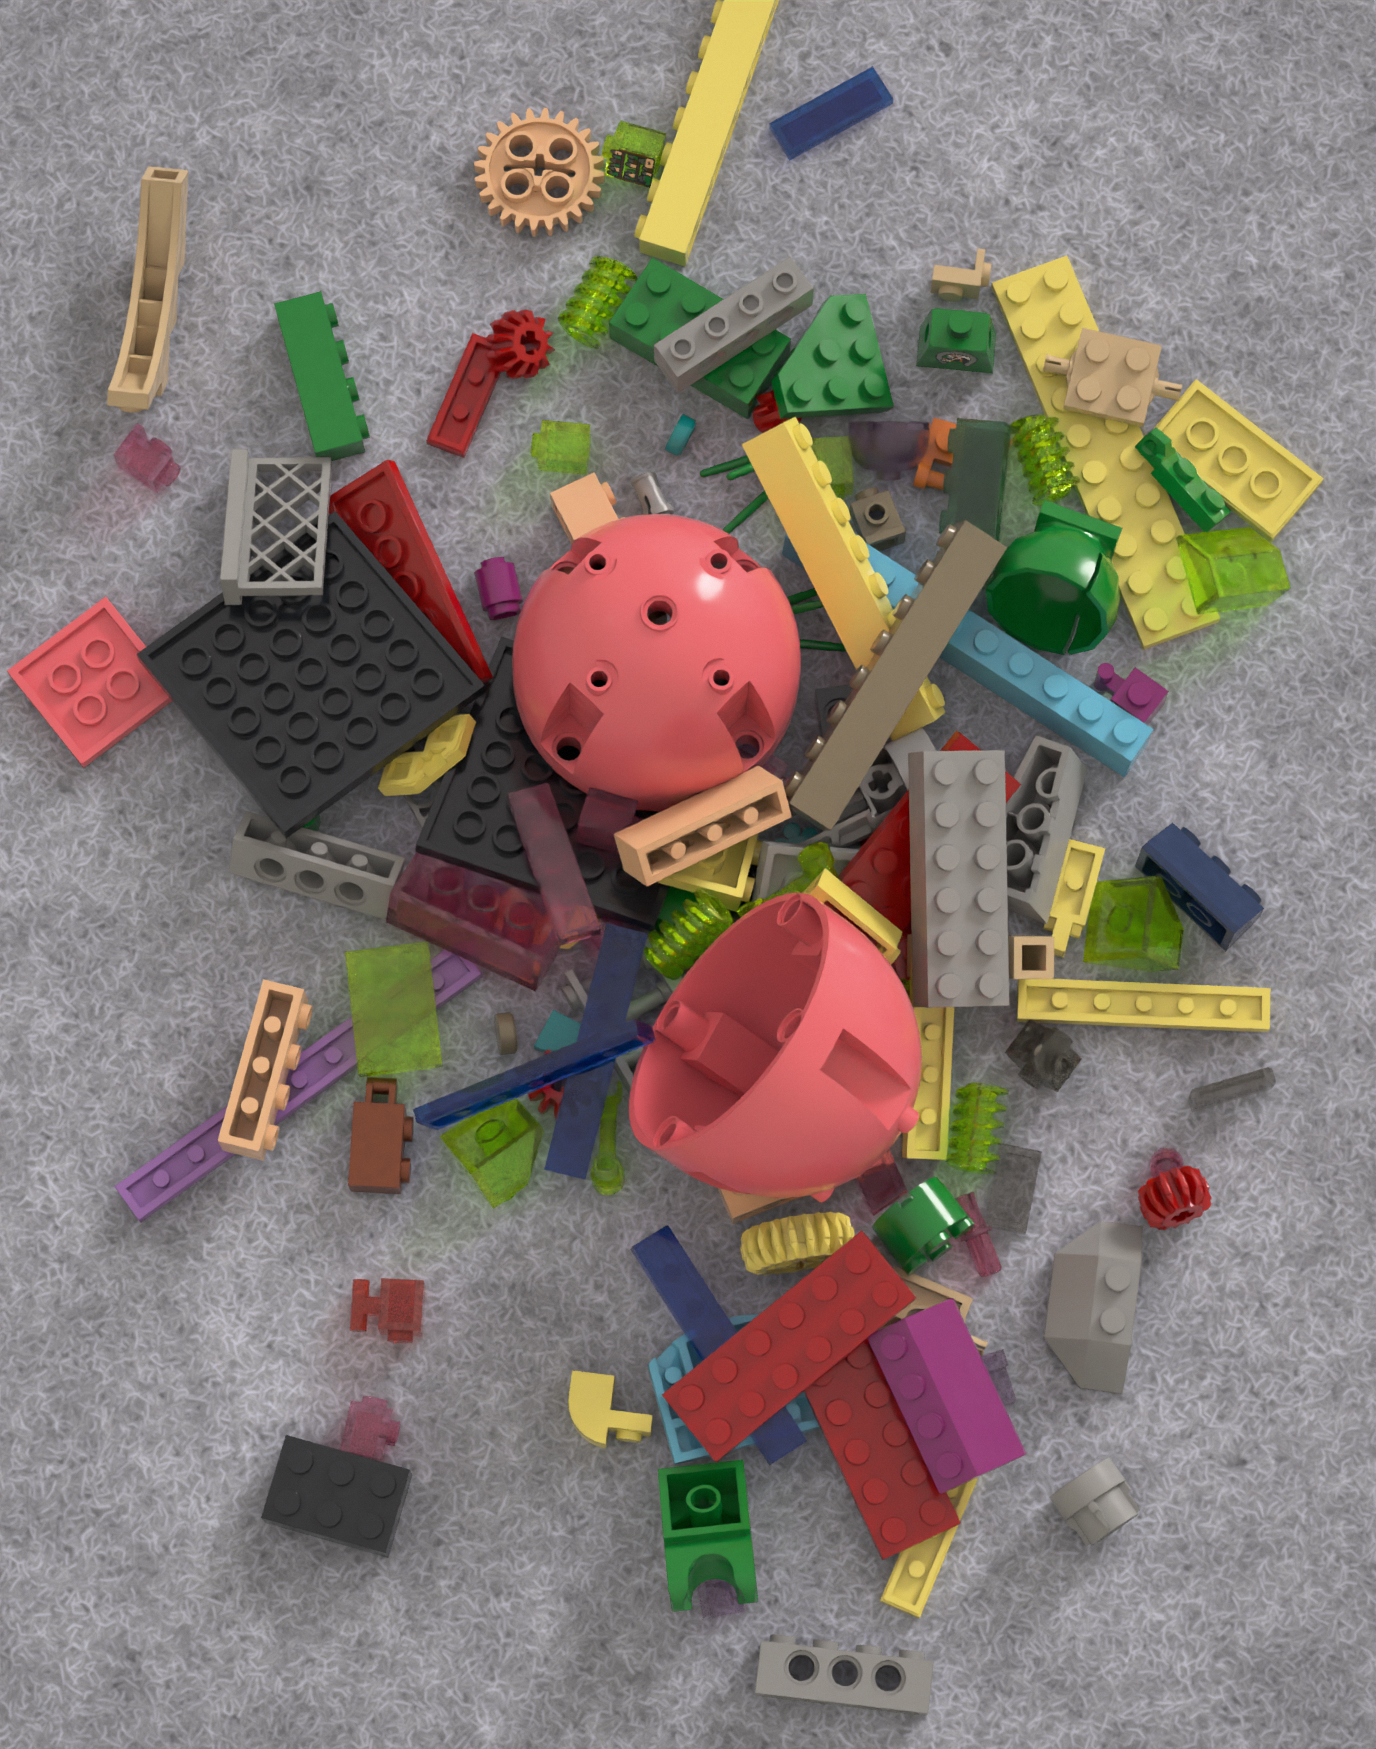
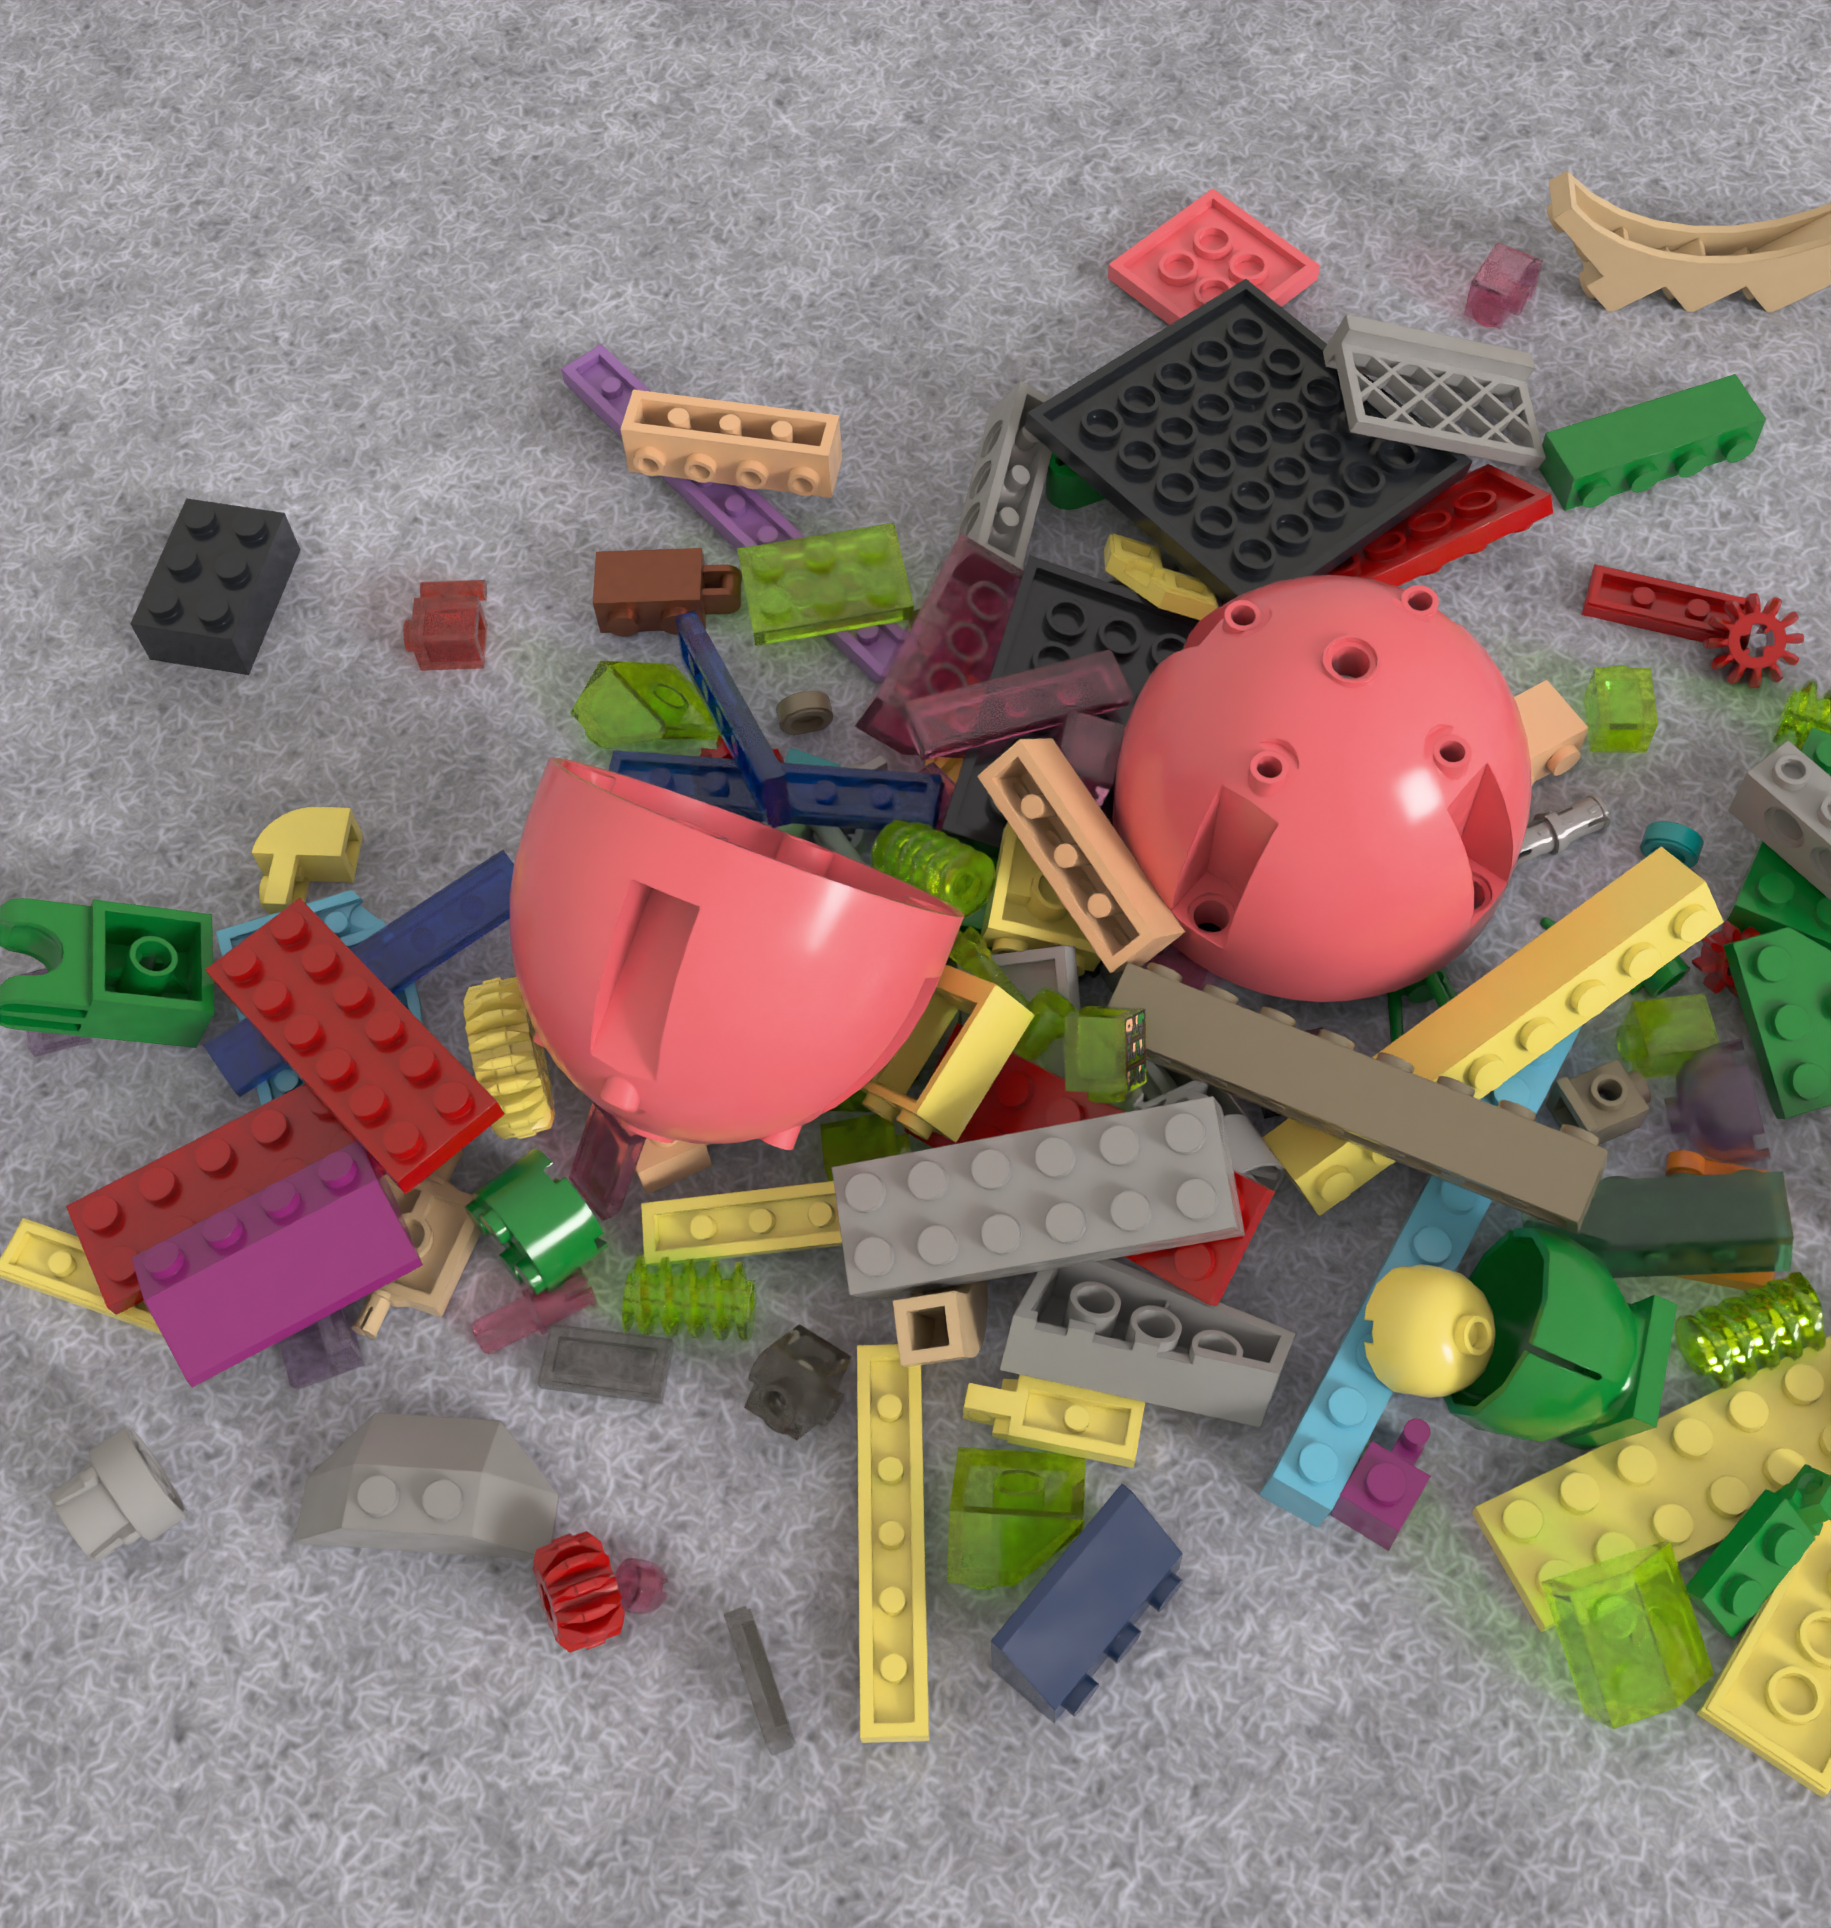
camera: 90 degrees right, 15 degrees down
(370, 1428) = (297, 612): clear pink brick -> none
(855, 824) = (1105, 1052): none -> clear neon green brick
(1050, 650) = (1428, 1331): none -> light yellow cylinder

